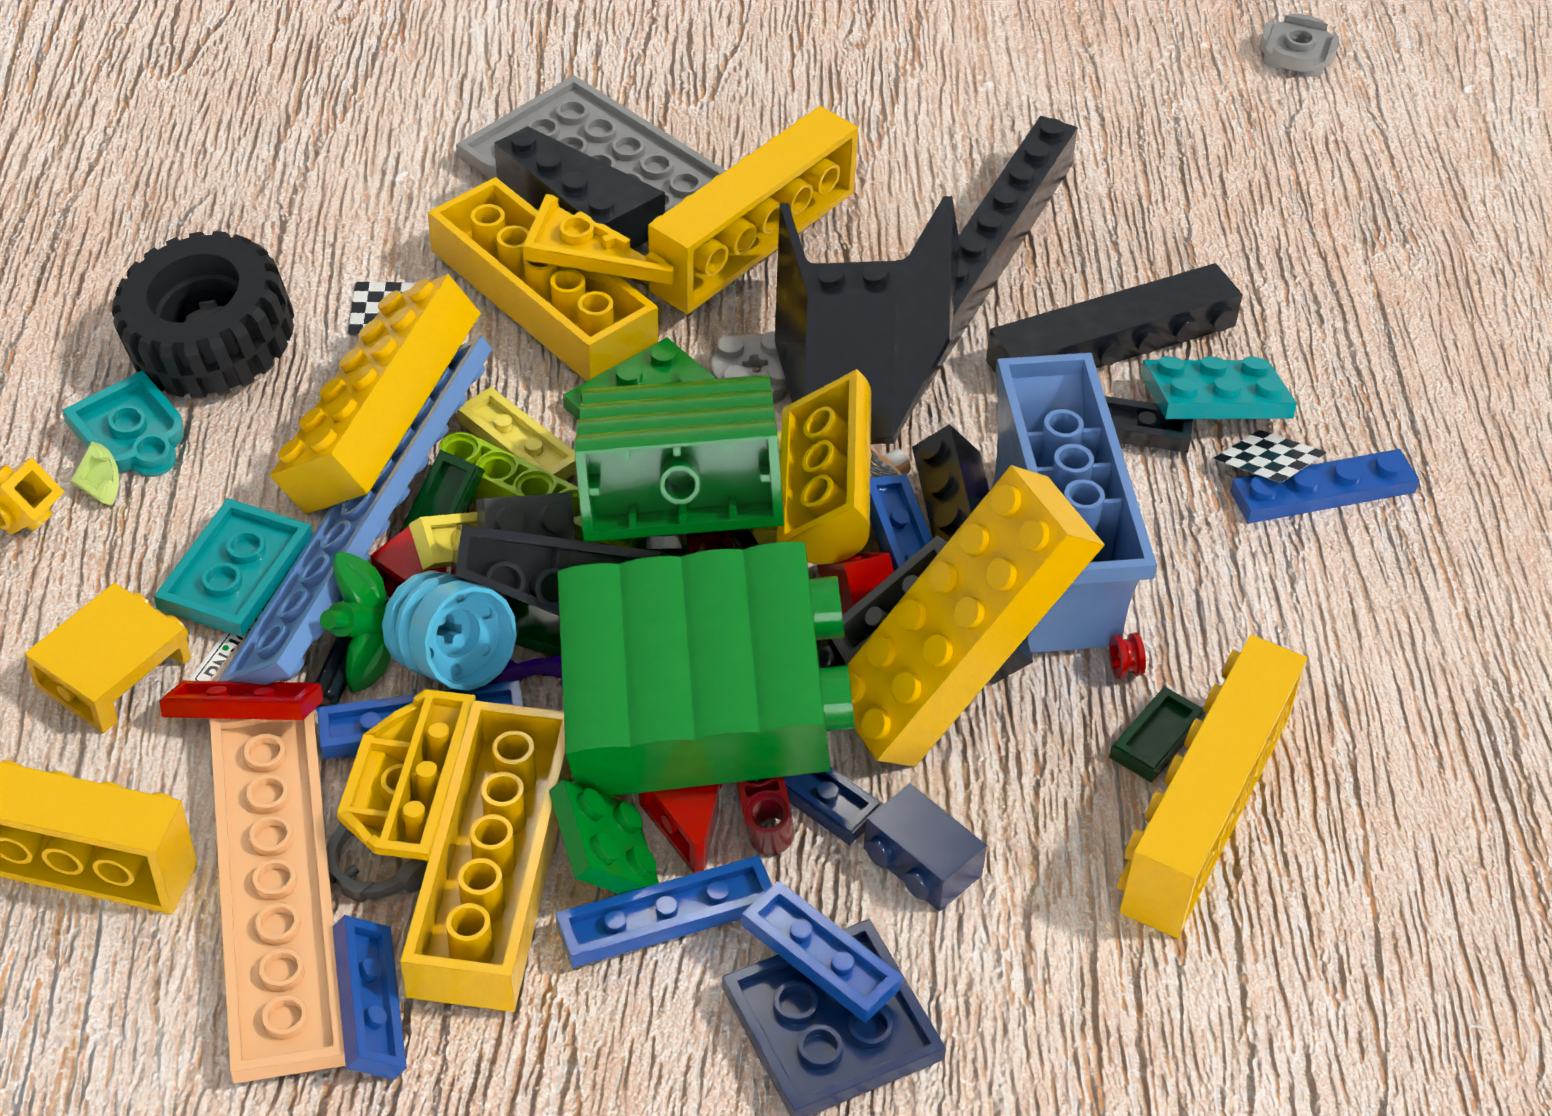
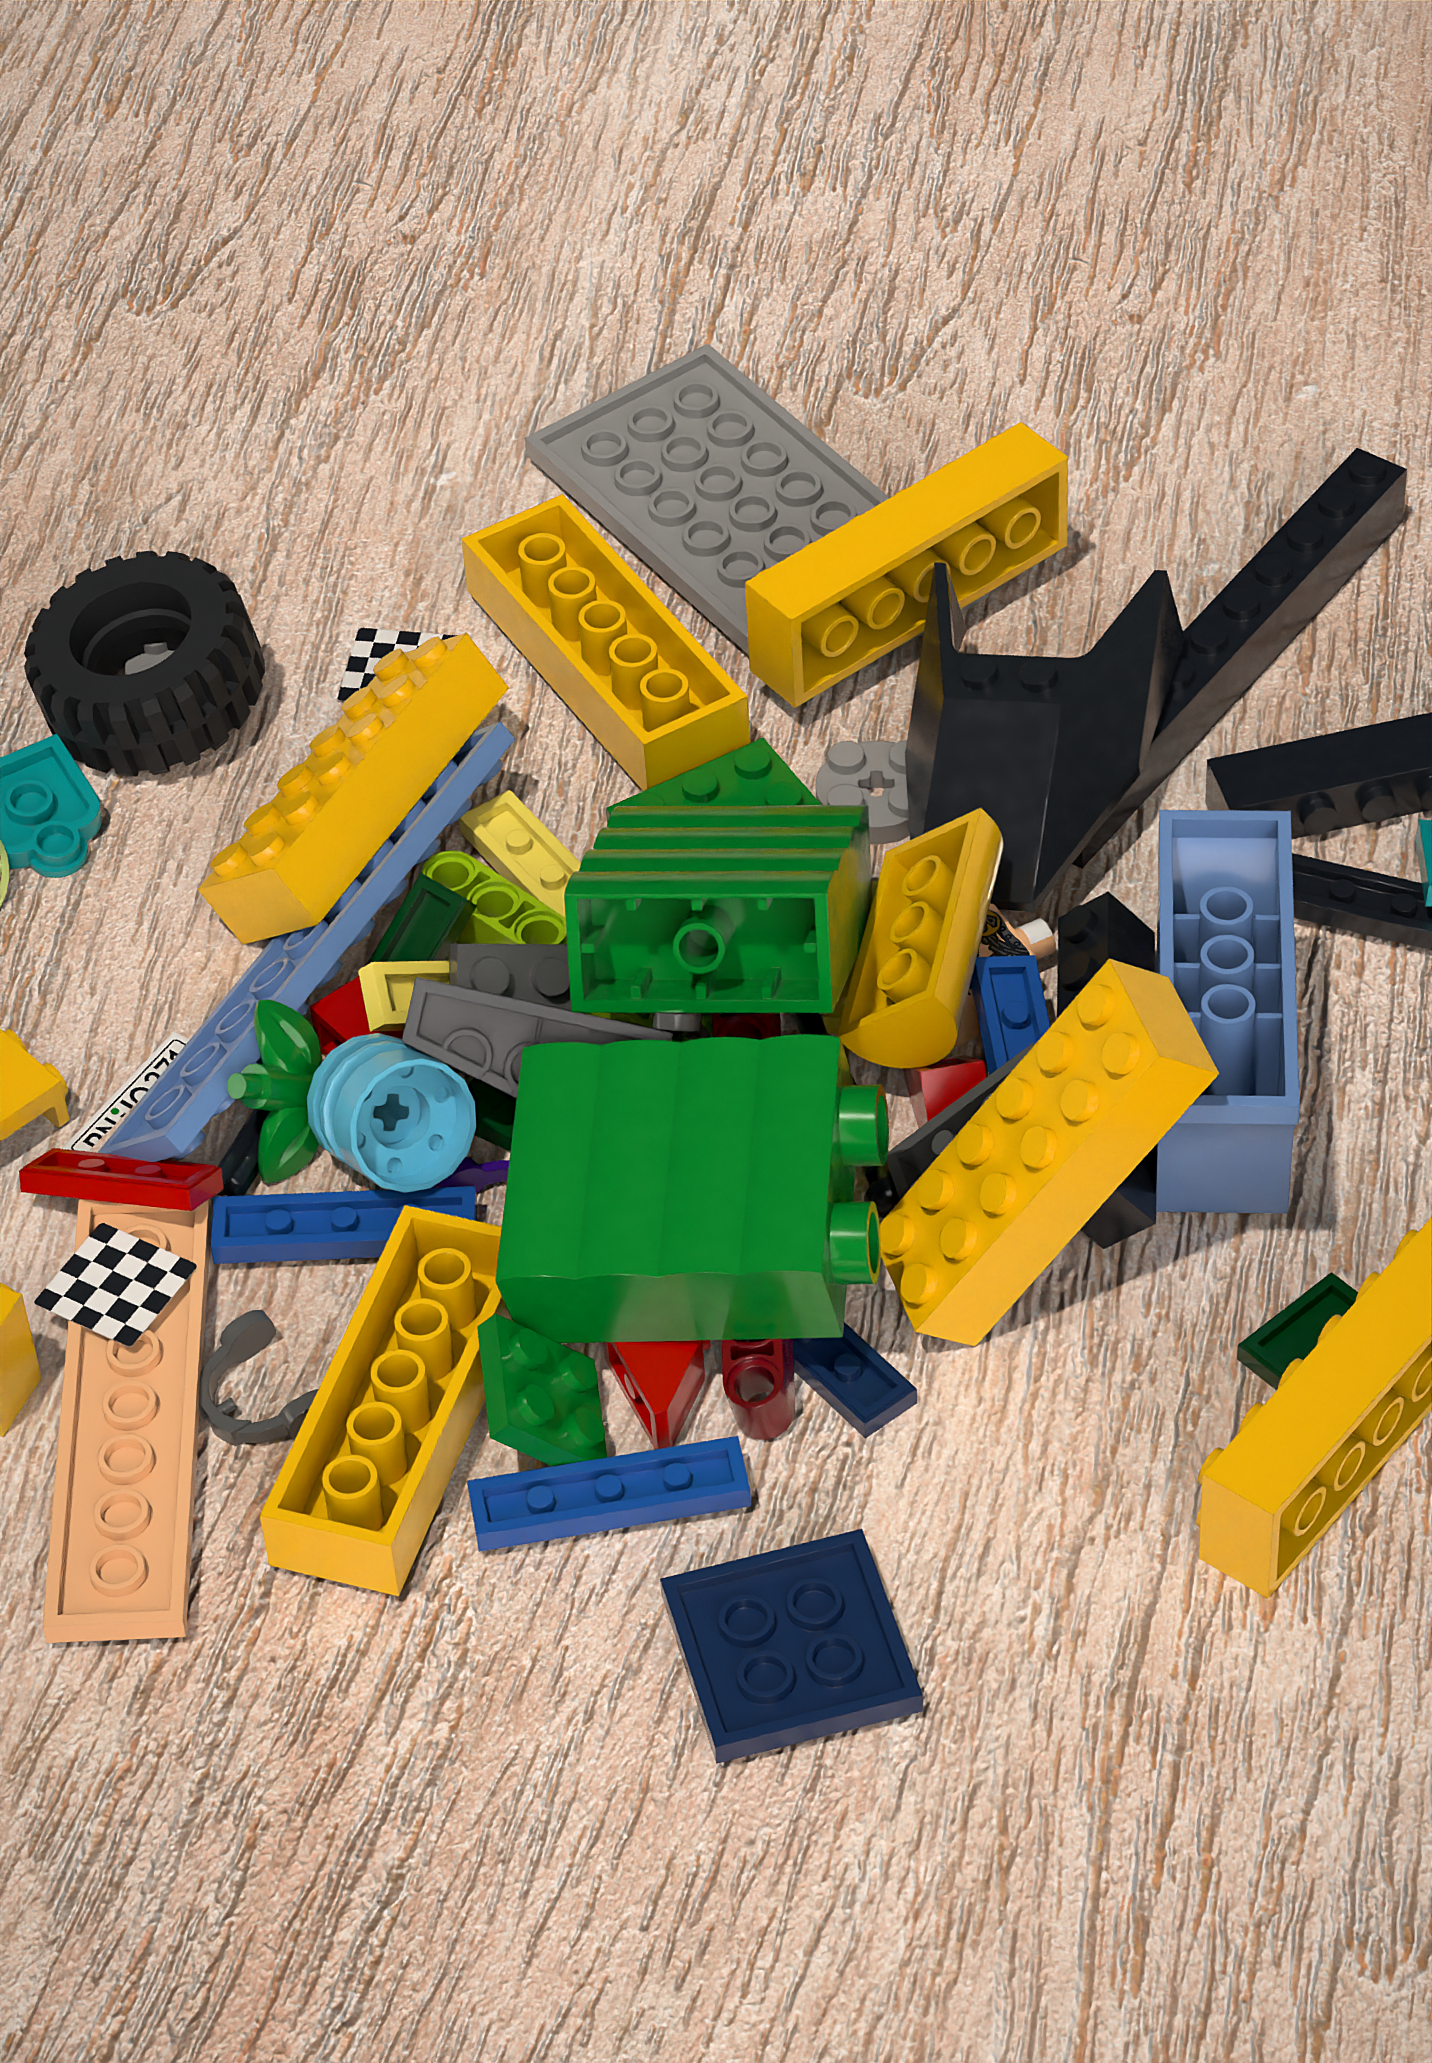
camera: 15 degrees right, 0 degrees up
(233, 567) = (138, 1007): teal plate -> none
(249, 783) = (115, 1284): none -> sticker
(368, 998) = (221, 1558): blue plate -> none
(405, 775) = (305, 1290): yellow wedge -> none
(542, 165) = (671, 524): black wedge -> none
(588, 246) = (659, 601): yellow wing -> none
(822, 951) = (786, 1559): plate -> none
(924, 847) = (954, 1448): brick -> none
(1127, 655) = (1290, 1226): red bush -> none

